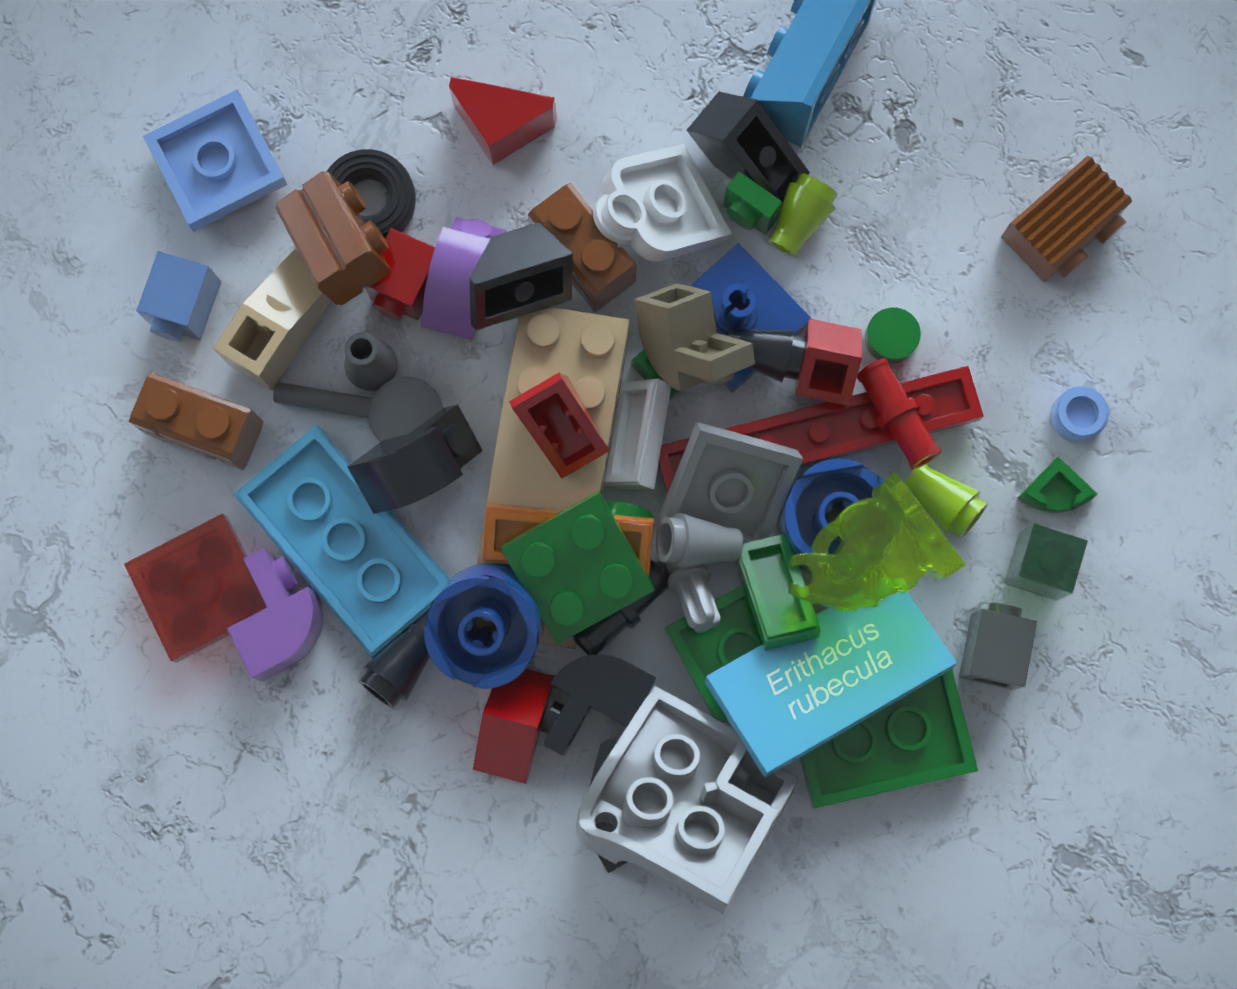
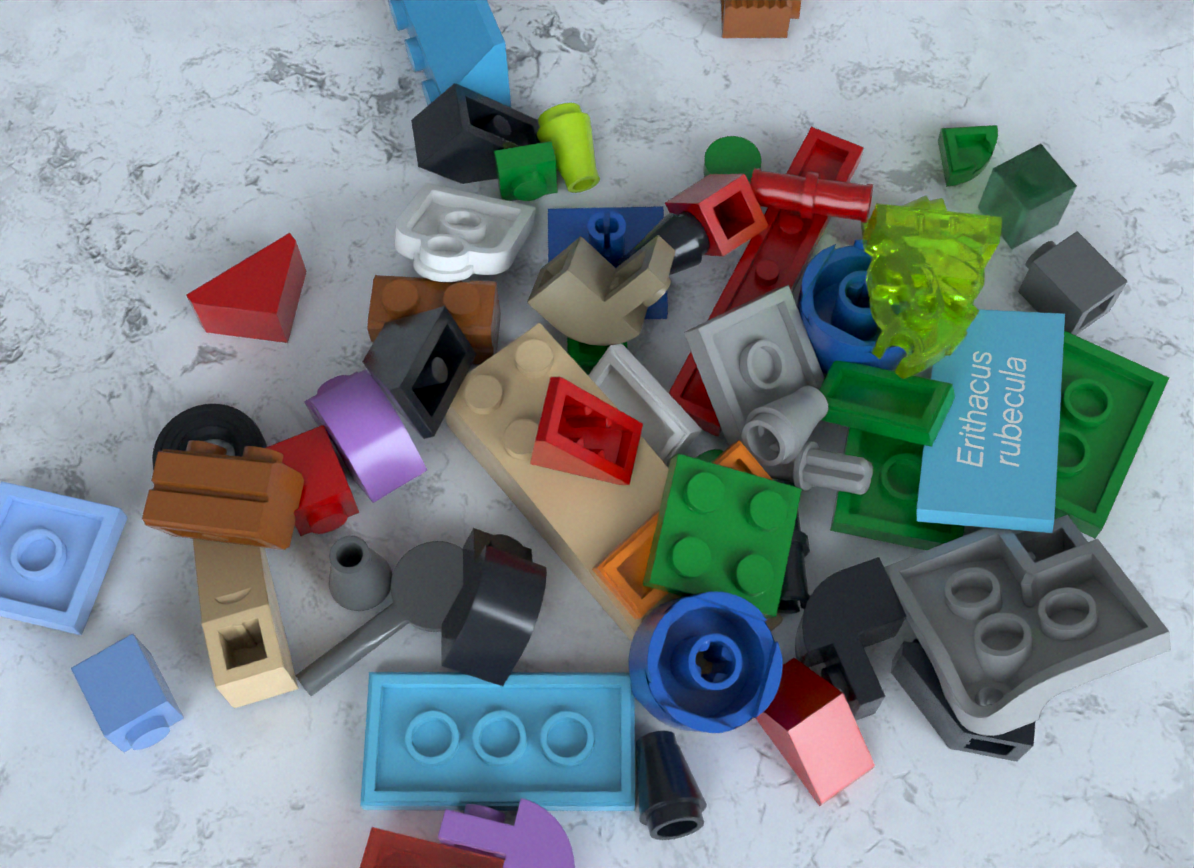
camera: 50 degrees left, 15 degrees down
(196, 421) = (259, 776): dark orange brick -> none
(1079, 414) = (917, 92): light blue tile -> none

